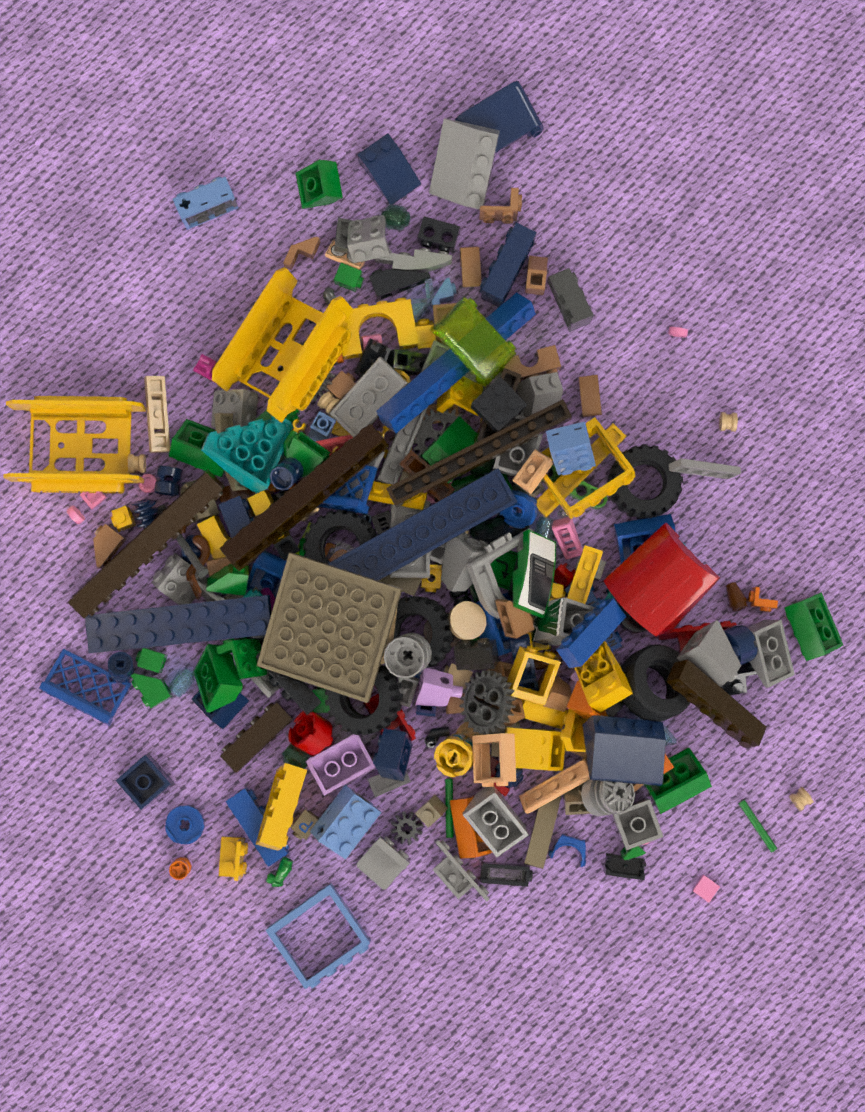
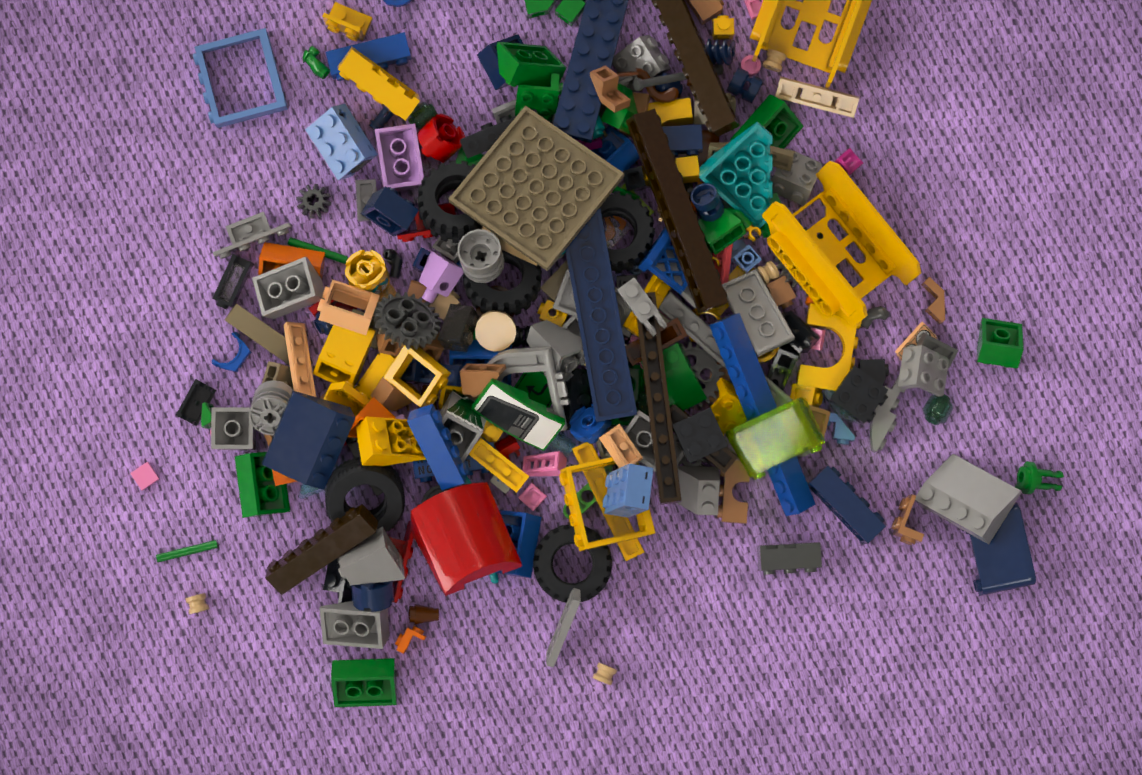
camera: 105 degrees right, 0 degrees up
(181, 682) = (538, 30): clear light blue brick -> none
(205, 202) = (1019, 219): medium blue piece -> none
(212, 600) = (606, 86): none -> medium nougat slope
(253, 740) = (456, 85): dark brown brick -> none
(304, 824) = (354, 102): dark tan brick -> none
(312, 794) = (380, 121): none -> dark blue pin
(348, 277) = (891, 339): green brick -> none
(383, 862) = (288, 166): light grey bracket -> none
(389, 169) = (991, 420): dark blue slope -> none
(402, 495) = (641, 305): none -> light grey hinge
(410, 285) = (859, 395): none -> black brick
(427, 118) = (1030, 478): none -> green piece
(431, 810) = (321, 230): dark tan brick -> none
(440, 230) = (908, 450): black brick -> none
(470, 266) = (859, 467): medium nougat slope -> none
(536, 275) = (827, 532): medium nougat slope -> none
(590, 395) = (682, 541): medium nougat slope -> none
(598, 539) = (532, 497): none -> bright pink tile
(678, 332) = (716, 656): bright pink tile -> none

